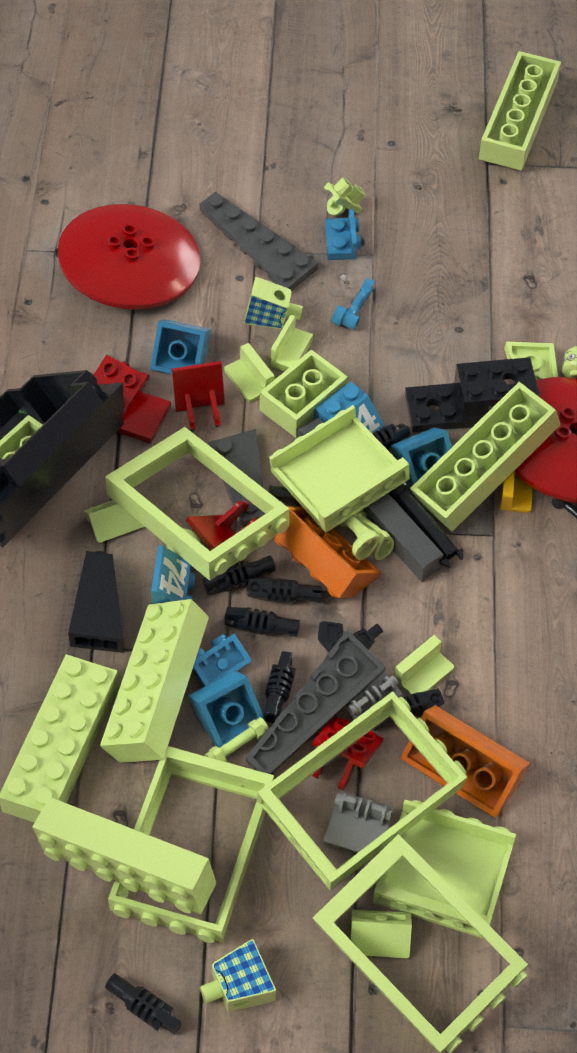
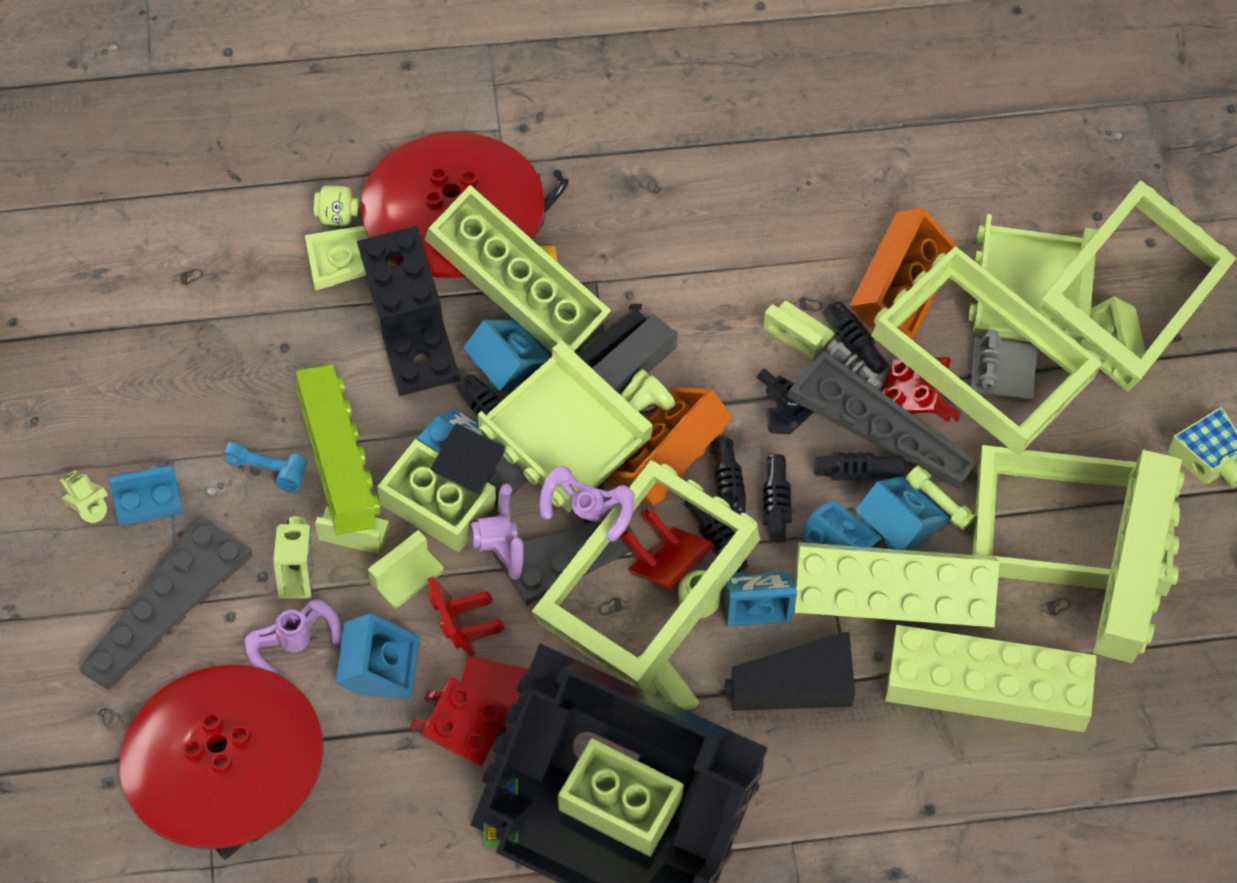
camera: 100 degrees left, 5 degrees up
(214, 305) = (292, 632): none -> lavender piece
(260, 424) = (500, 535): none -> lavender piece
(264, 467) = (588, 501): none -> lavender piece
(320, 401) = (468, 458): none -> black piece
(351, 332) = (336, 450): none -> lime brick

